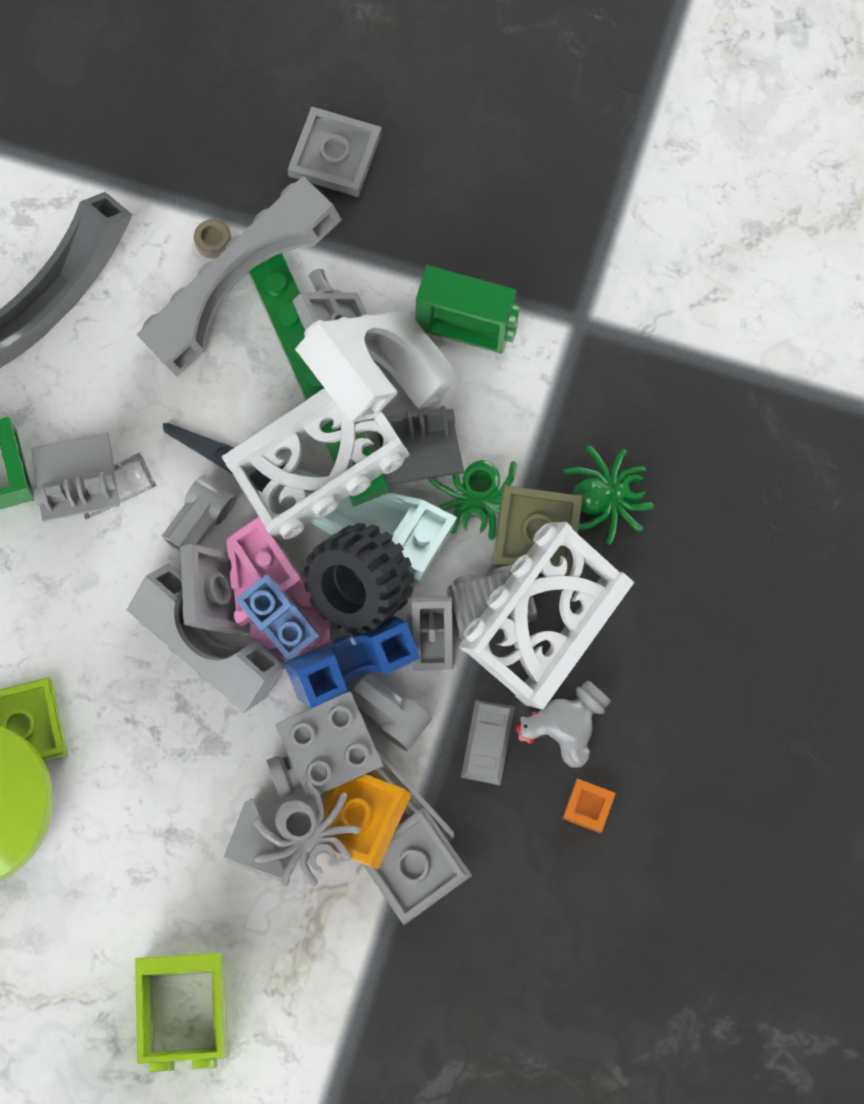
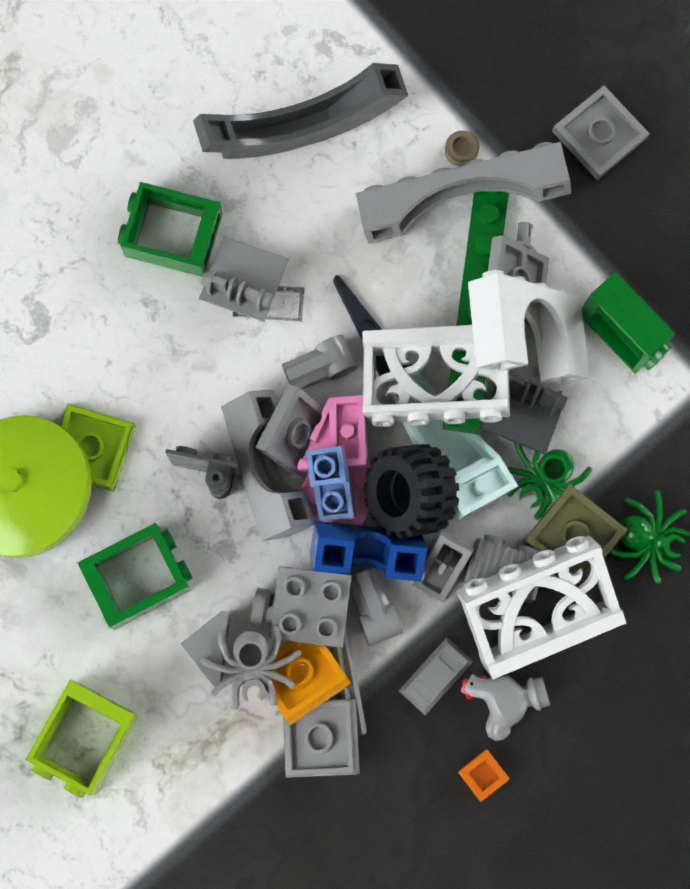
camera: 30 degrees right, 5 degrees up
(151, 772) = (113, 615): none -> green window
(160, 667) = (219, 468): none -> dark grey hinge

